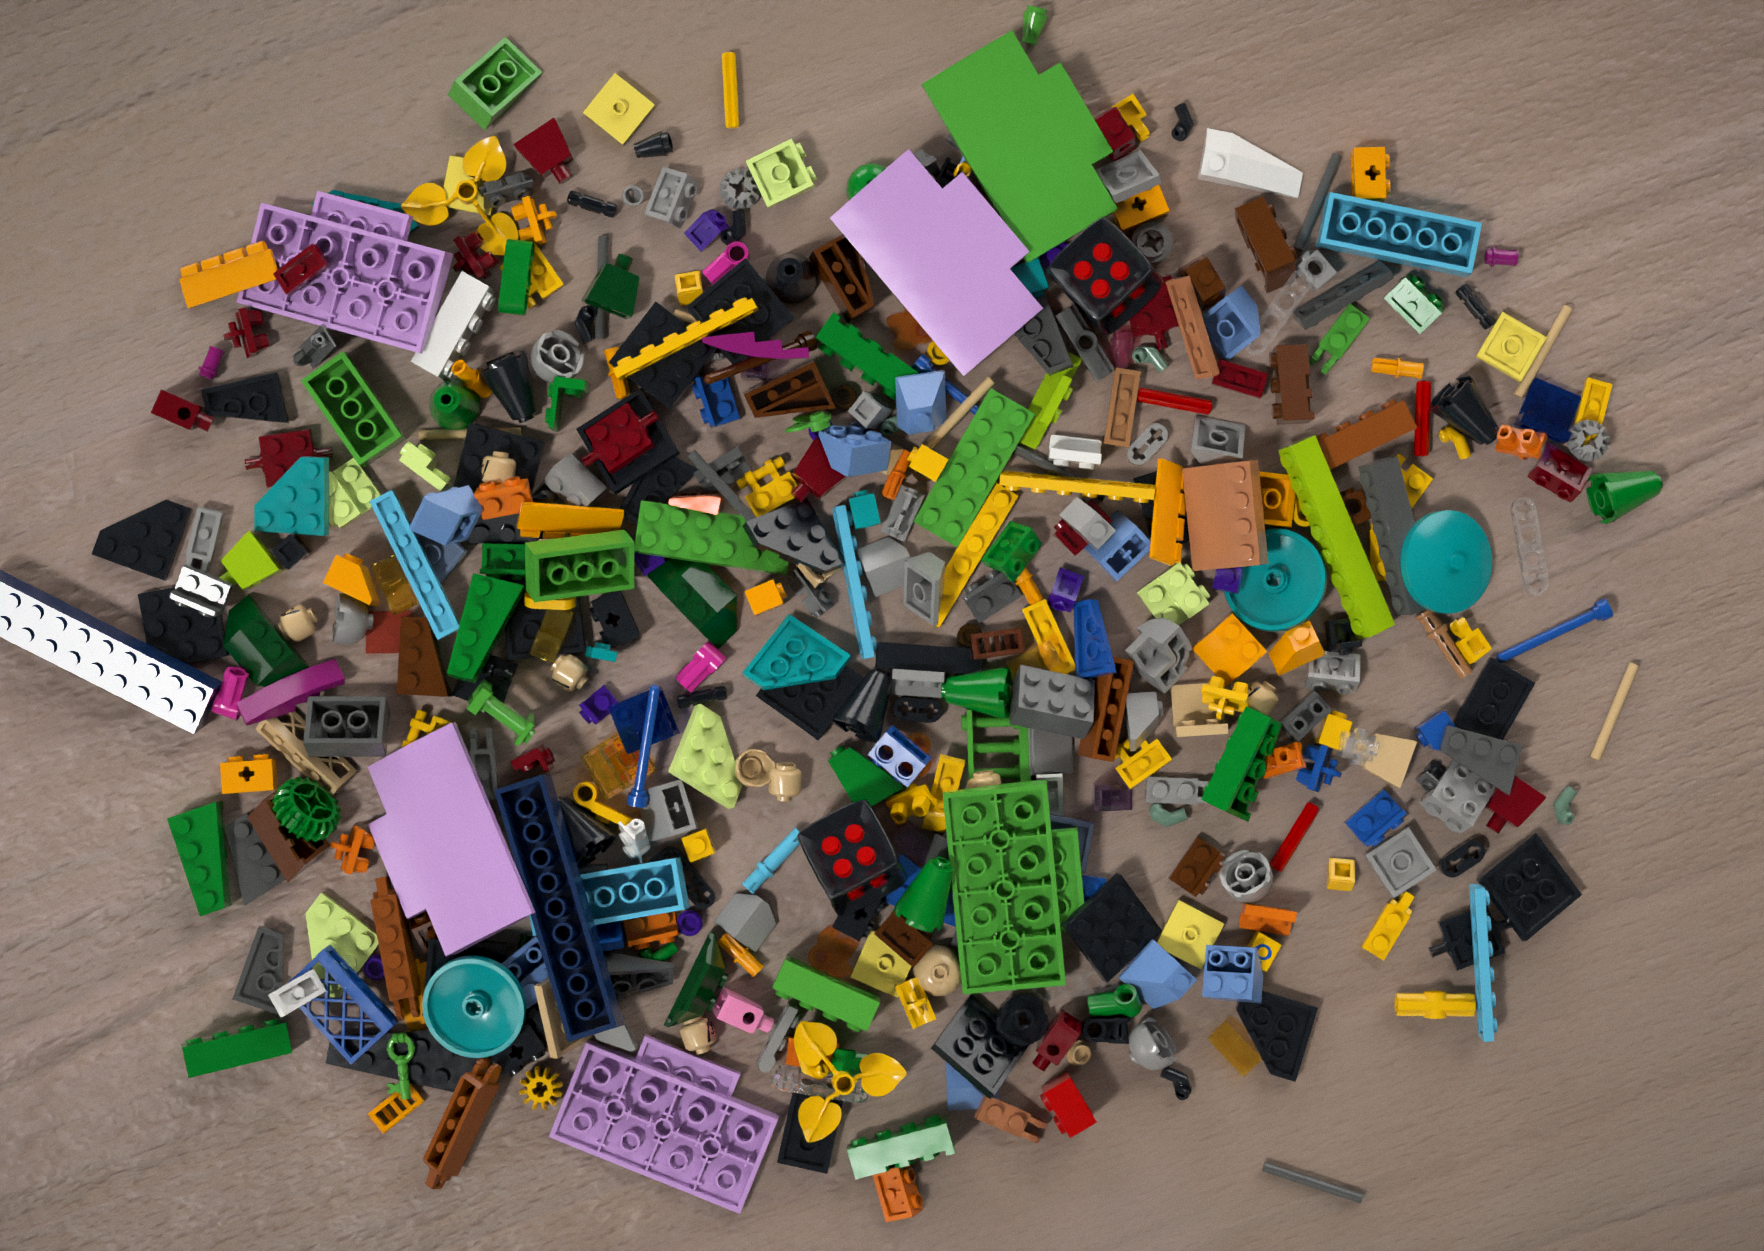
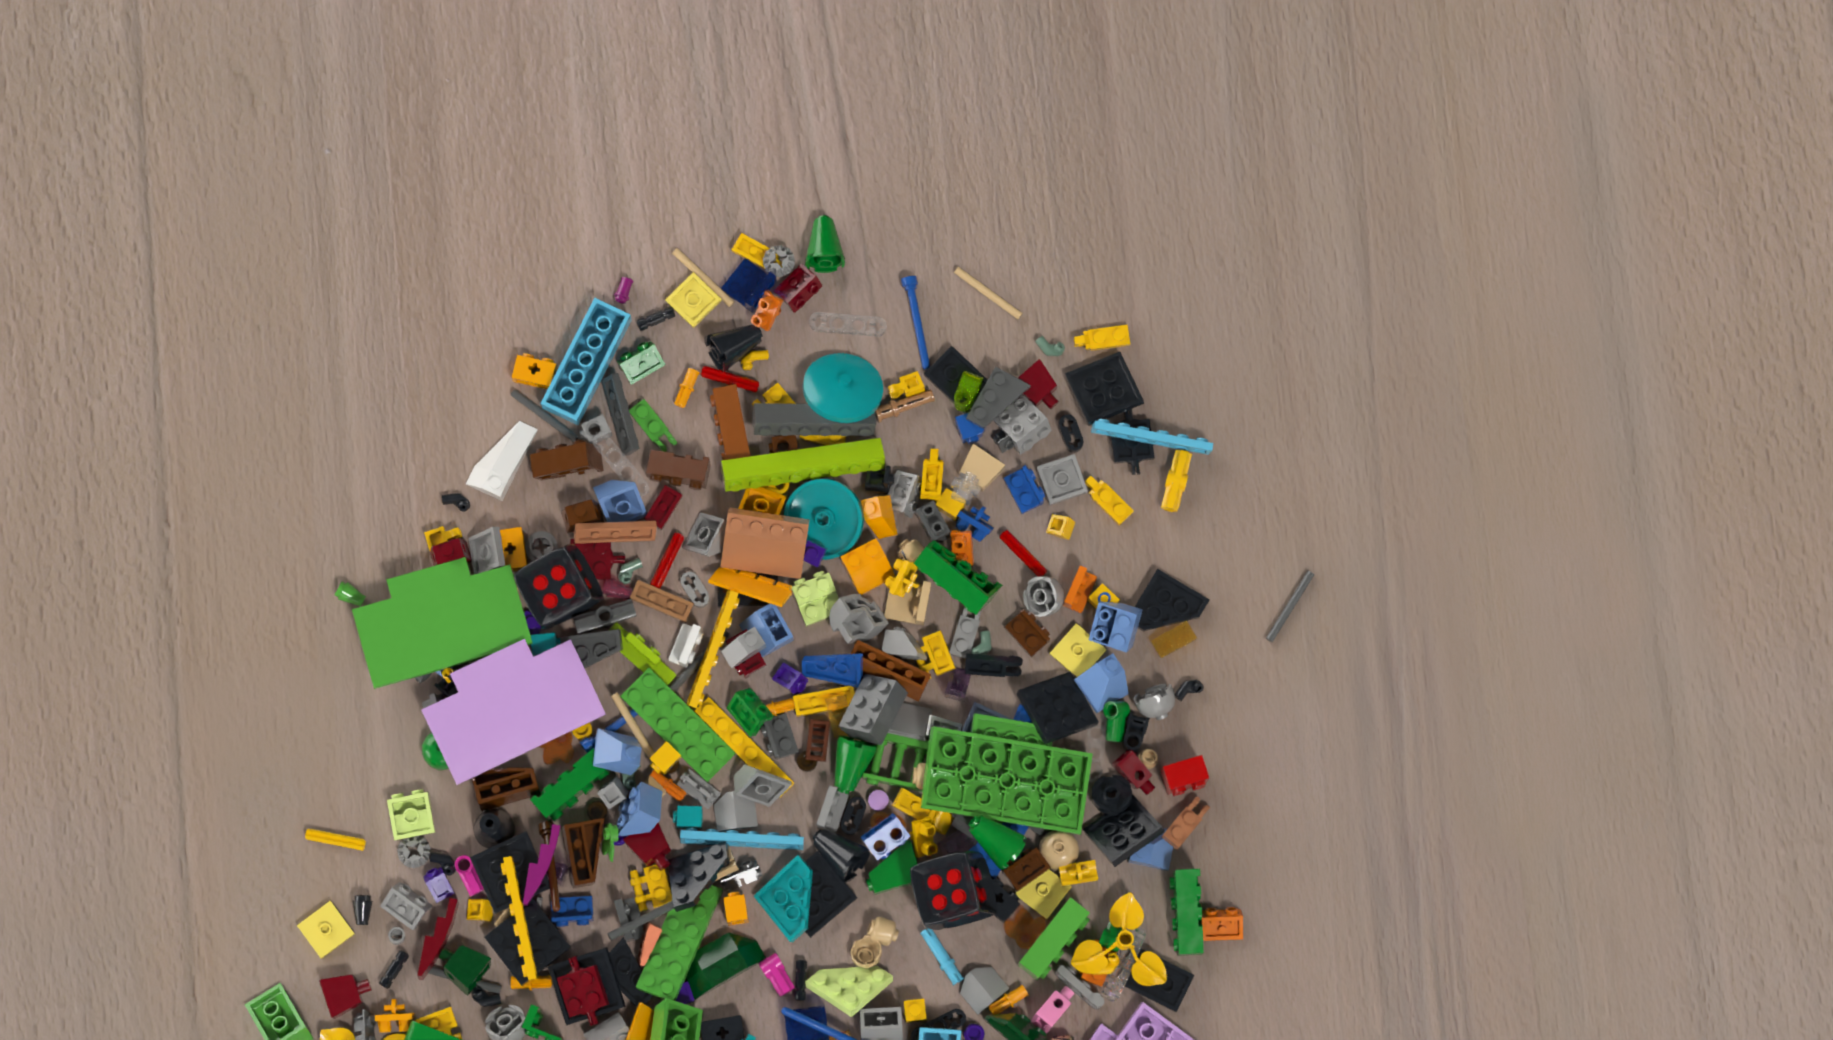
camera: 75 degrees left, 10 degrees down
(630, 244) = (434, 945): none -> dark red slope
(927, 658) = (815, 797): black slope -> none
(944, 735) = (878, 800): none -> lavender tile
(1145, 834) = (993, 665): none -> black hinge
(1362, 701) = (932, 477): none -> yellow hinge
(1486, 717) = (968, 387): none -> clear neon green piece
(1594, 870) = (1104, 338): none -> yellow hinge

